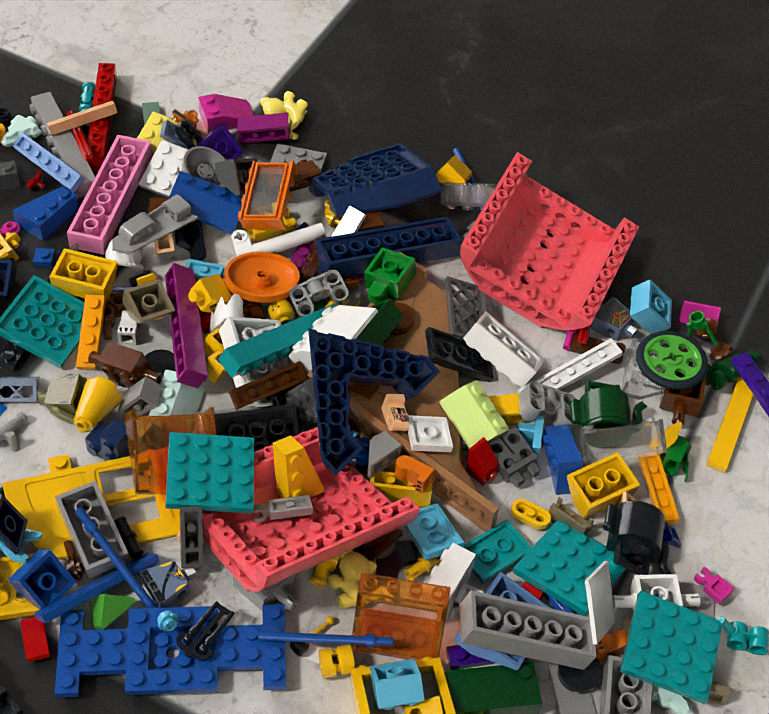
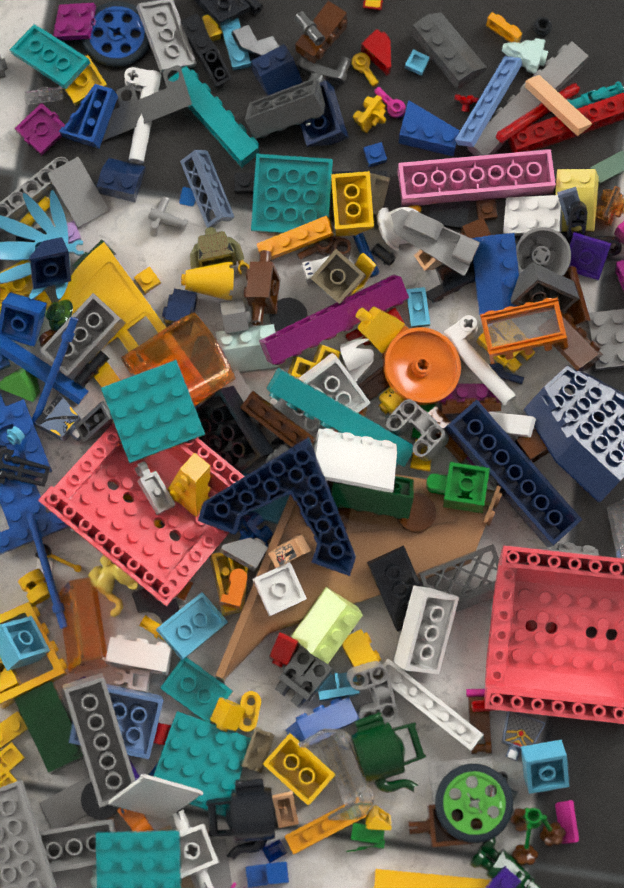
camera: 75 degrees right, 25 degrees up
(61, 540) = (59, 313): none -> clear green piece
(140, 201) = (486, 209): none -> reddish brown plate
(530, 528) = (227, 714): none -> yellow brick
(692, 551) = (267, 874): none -> blue slope

